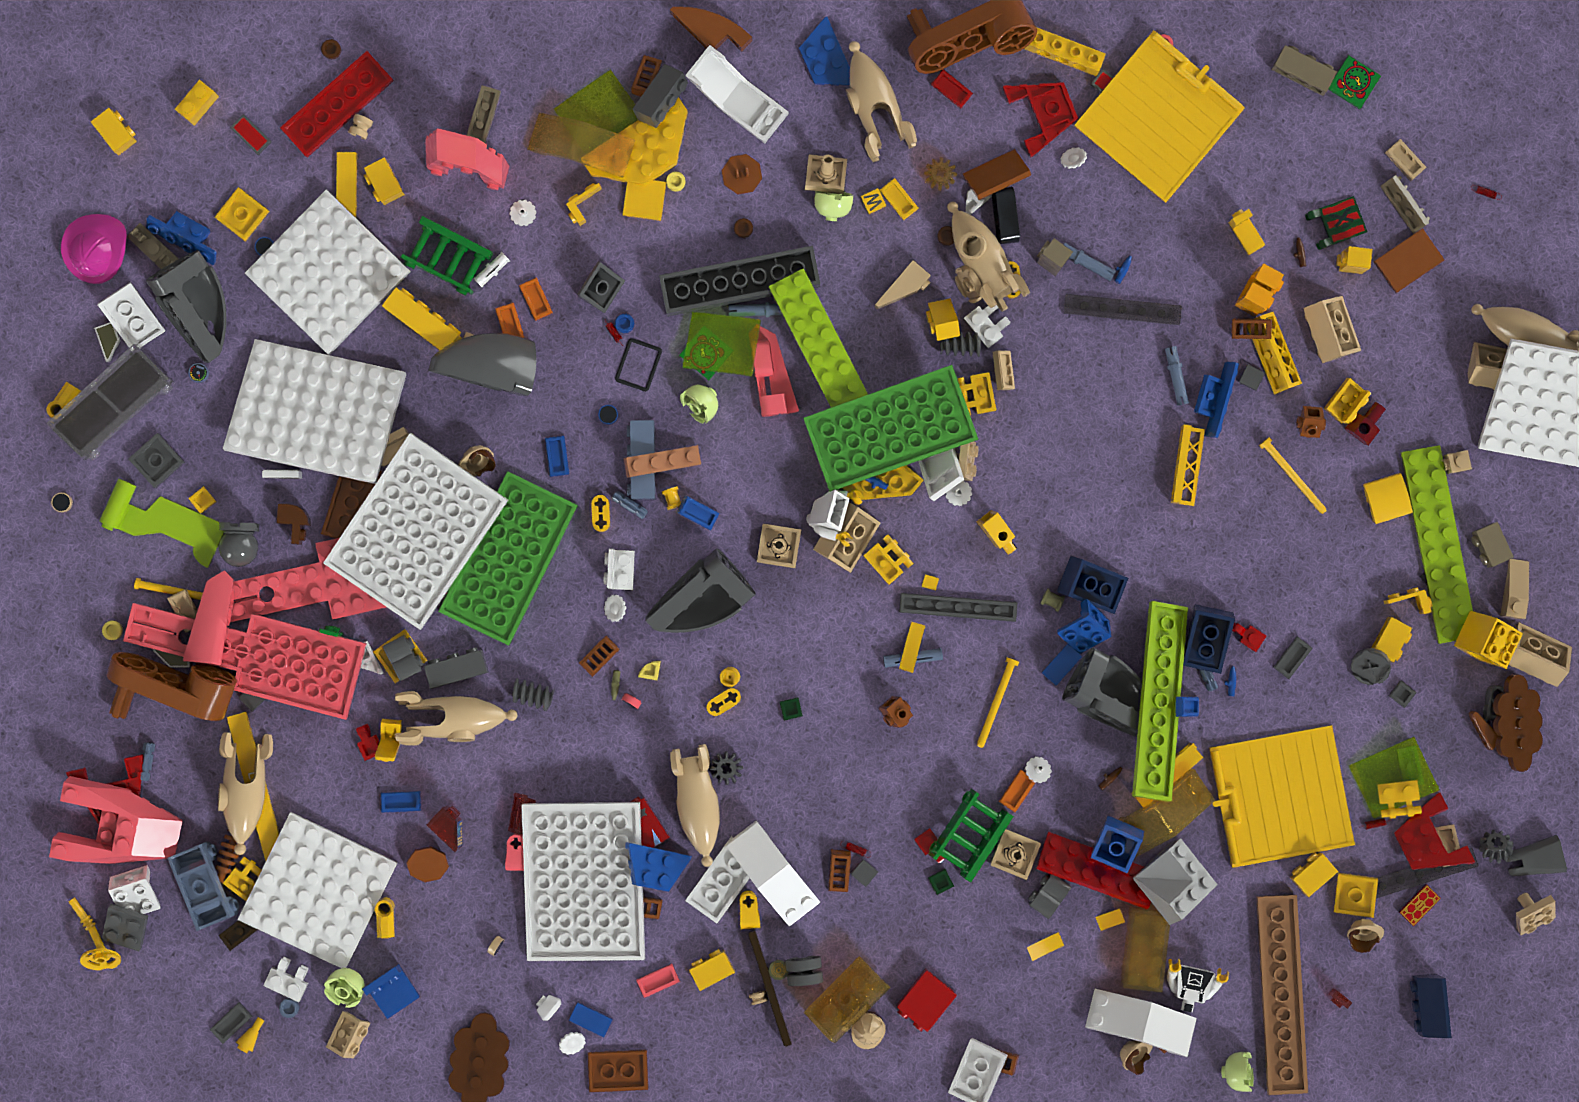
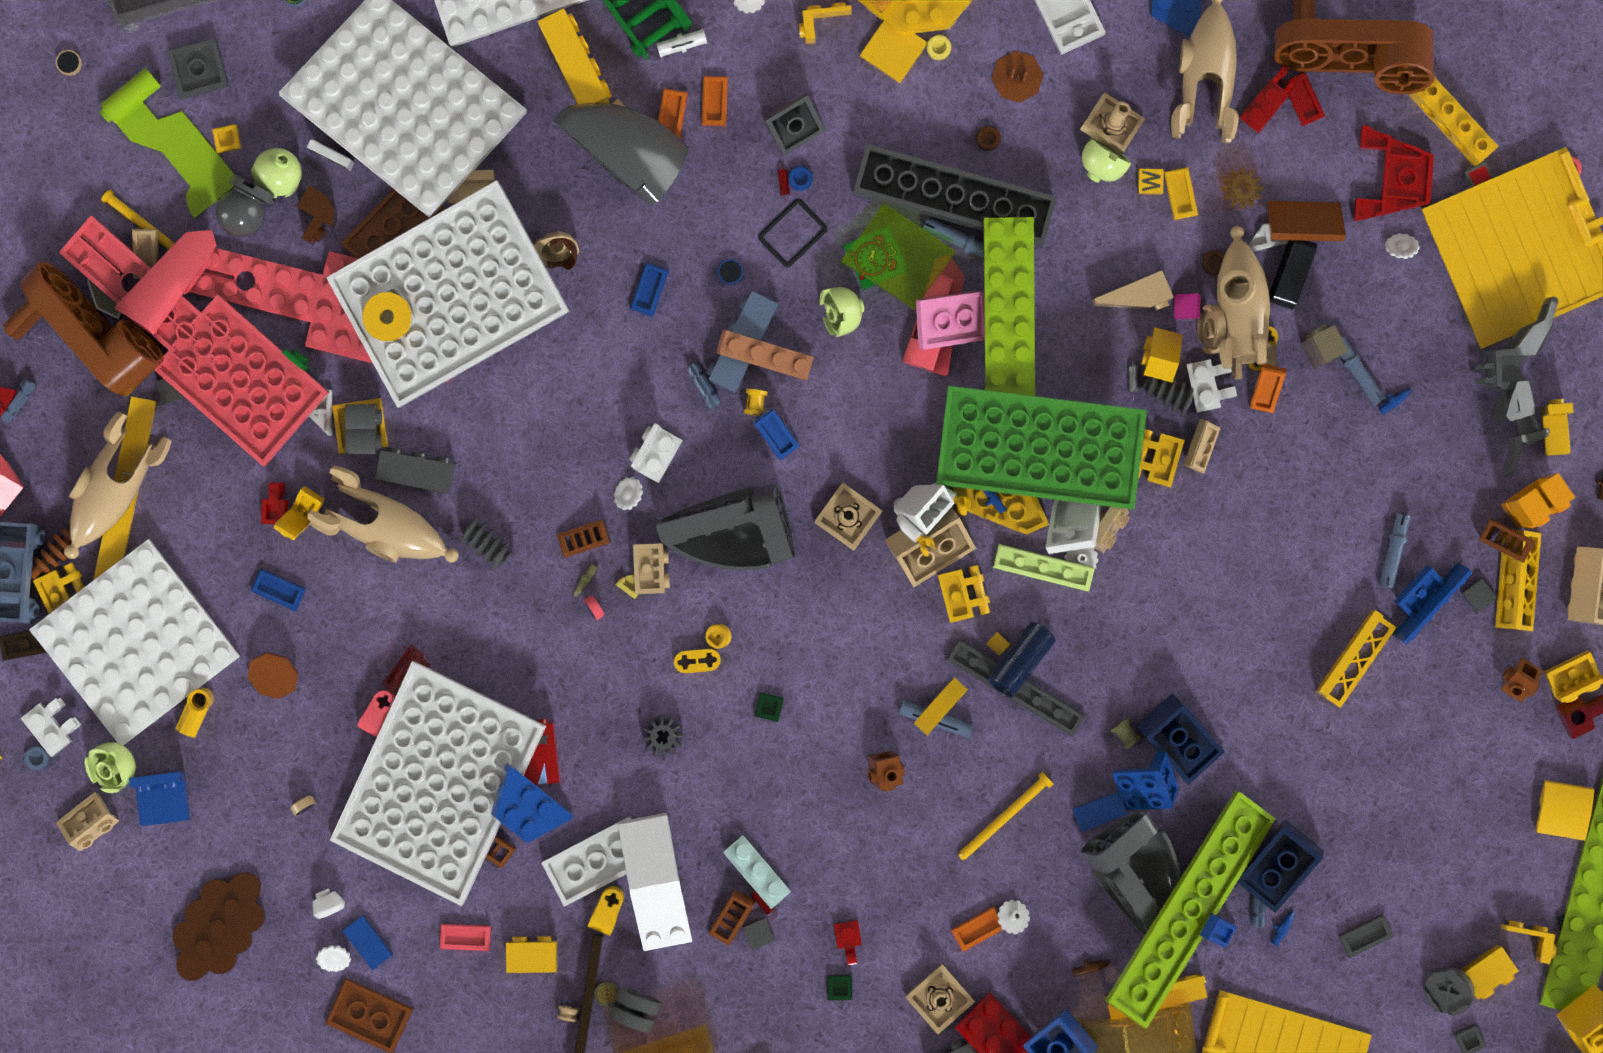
camera: 25 degrees right, 0 degrees up
(112, 630) = (53, 234): light yellow tile -> none
(250, 505) = (277, 172): none -> yellowish green cylinder
(369, 572) = (373, 311): none -> yellow tile
(448, 827) = (317, 645): clear red slope -> none
(510, 560) = (537, 380): bright green plate -> none
(605, 512) = (671, 381): yellow beam -> none
(657, 654) = (649, 568): none -> tan bracket
(696, 801) = (610, 757): tan piece -> none
(781, 370) = (950, 319): none -> bright pink plate
(841, 829) = (756, 872): none -> light aqua plate
(928, 103) = (1268, 101): none -> red hinge
(931, 347) = (1133, 379): none -> white piece
(935, 512) = (1043, 567): none -> yellowish green tile
(943, 276) = (1187, 306): none -> dark pink tile
(953, 579) = (1026, 655): none -> dark blue piece
(979, 852) = (921, 963): green fence -> none
(992, 525) = (1102, 614): yellow torso -> none
(1029, 306) = (1267, 388): none -> orange tile
(1122, 309) = (1371, 445): clear smoke tile -> none
(1207, 224) = (1516, 400): none -> dark grey piece
(1250, 637) = (1329, 888): red plate -> none
(1292, 474) = (1470, 729): yellow bar -> none

